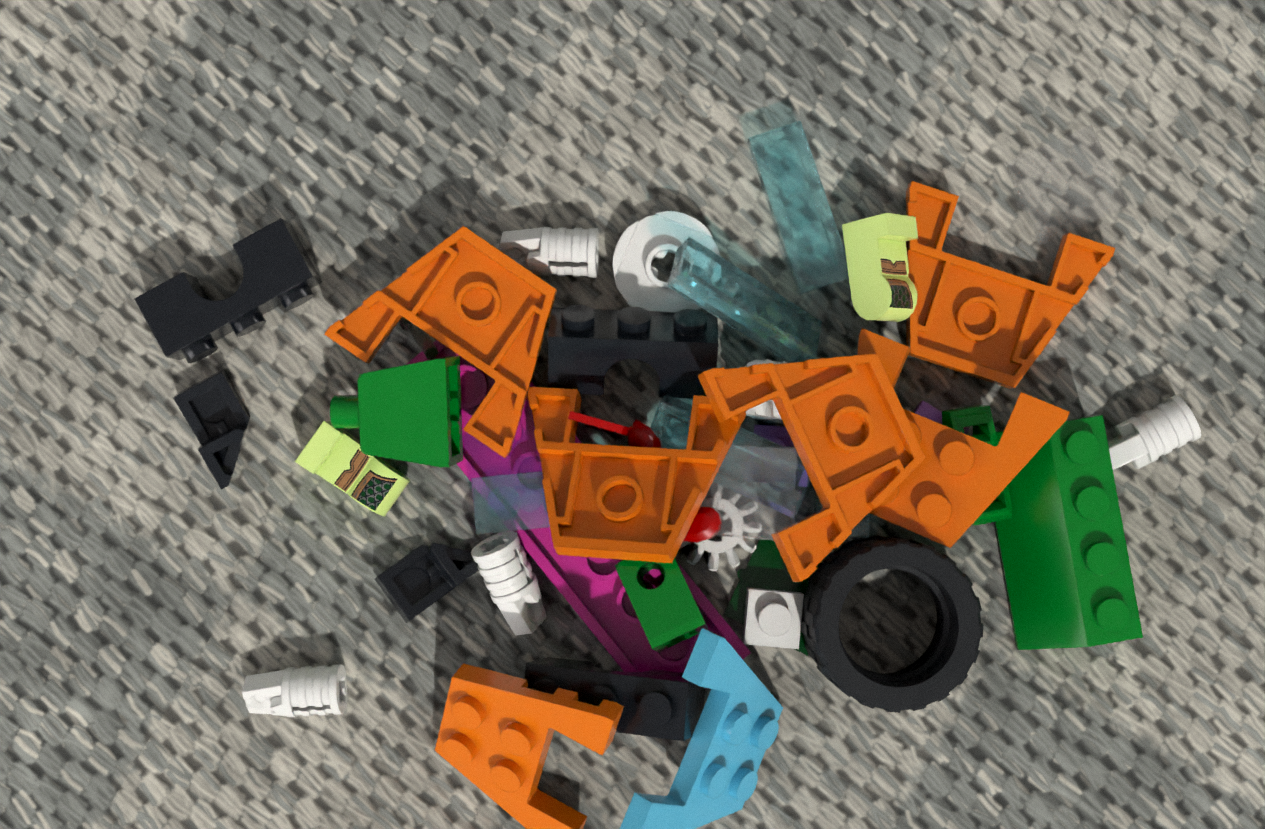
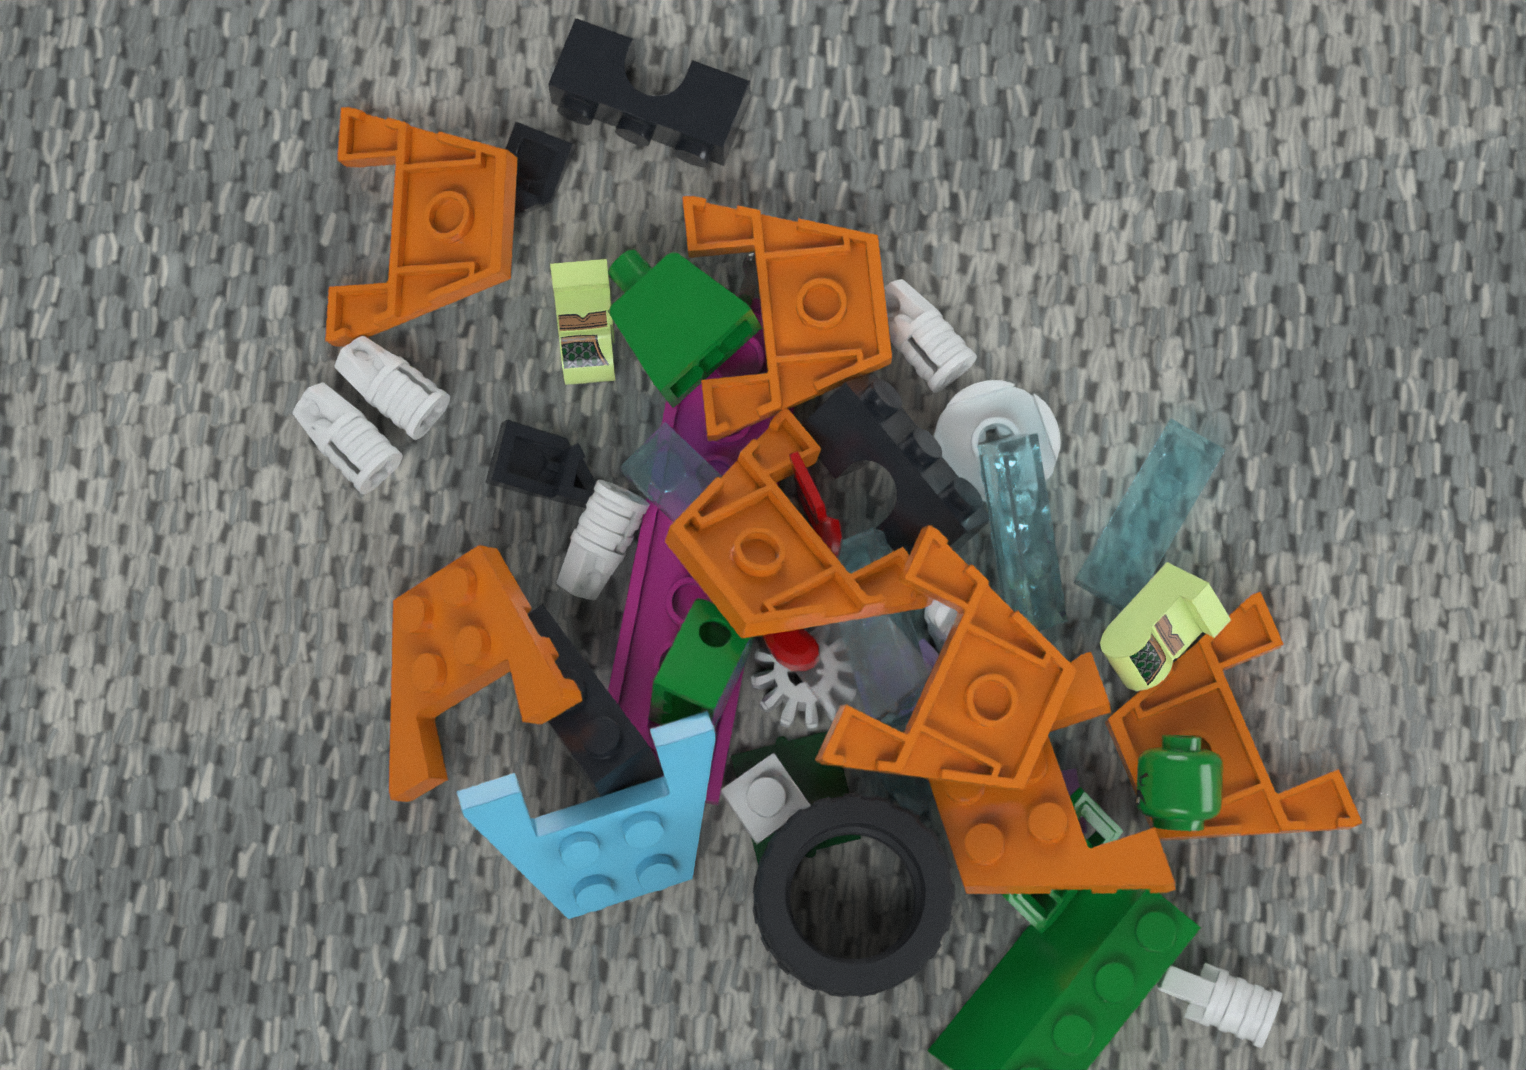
camera: 50 degrees right, 10 degrees down
(206, 506) = (446, 229): none -> orange wing
(287, 632) = (392, 386): none -> white hinge
(998, 347) = (1179, 784): none -> green head

